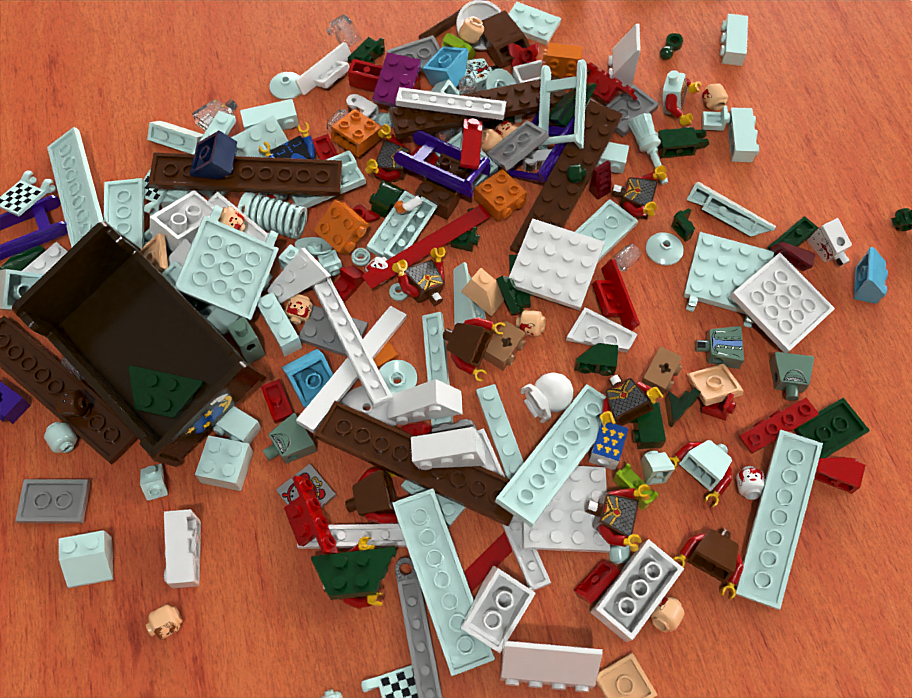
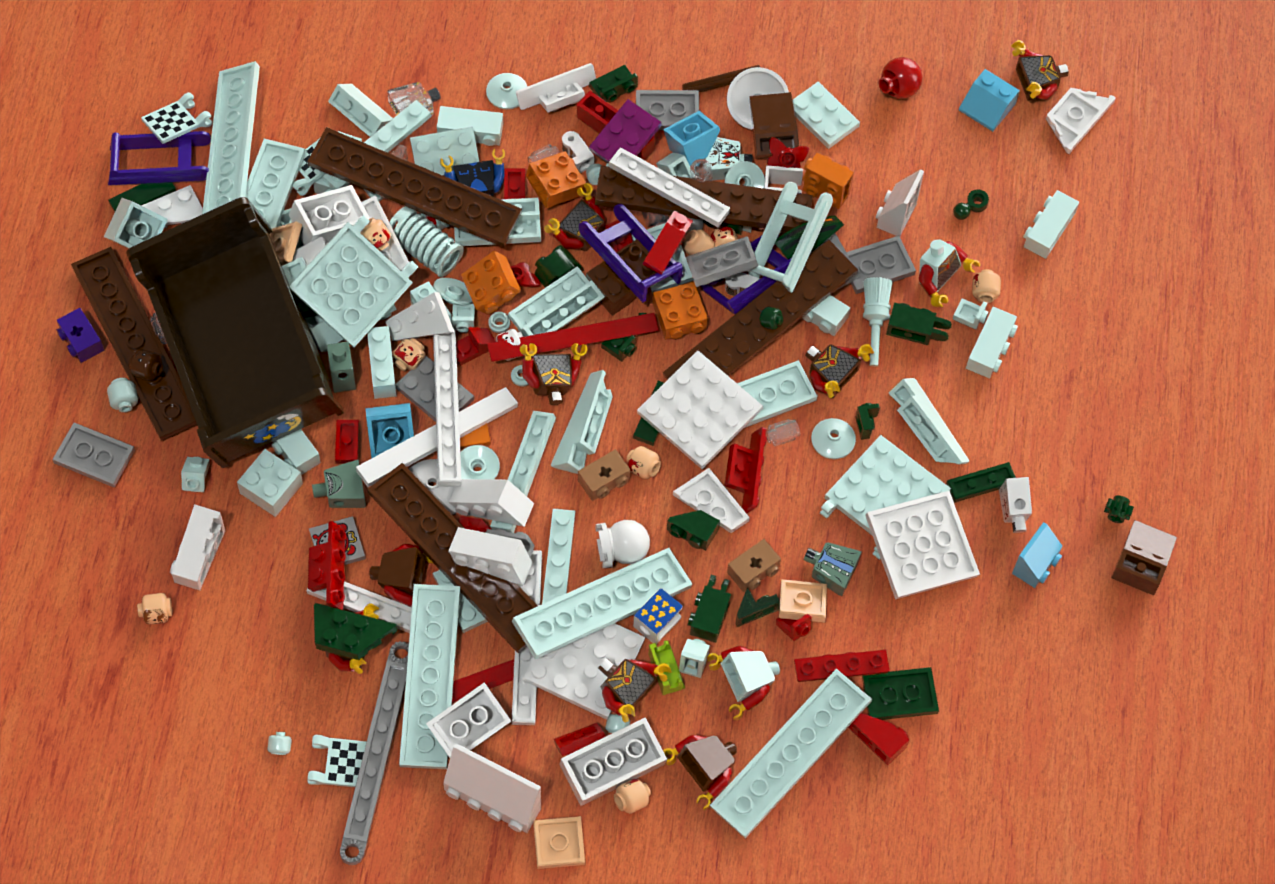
camera: 20 degrees right, 0 degrees up
(86, 558) = (105, 521): light aqua slope -> none
(162, 392) = (236, 387): dark green wing -> none
(214, 156) = (386, 156): dark blue slope -> none
(344, 30) = (598, 49): clear brick -> none
(408, 206) = (572, 286): white arm -> none
(452, 41) = (717, 113): lime piece -> none
(469, 343) = (564, 458): reddish brown torso -> none
(471, 30) = (739, 104): light nougat head -> none
(484, 292) = (611, 410): light nougat slope -> none
(513, 301) = (633, 424): dark green plate -> none
(601, 180) = (798, 336): dark red slope -> none
(607, 87) = (861, 224): red bracket -> none
(627, 401) = (693, 579): torso -> none
(750, 482) = (782, 709): white head -> none
(791, 373) = (892, 622): sand green torso -> none
(798, 257) = (968, 501): dark red slope -> none

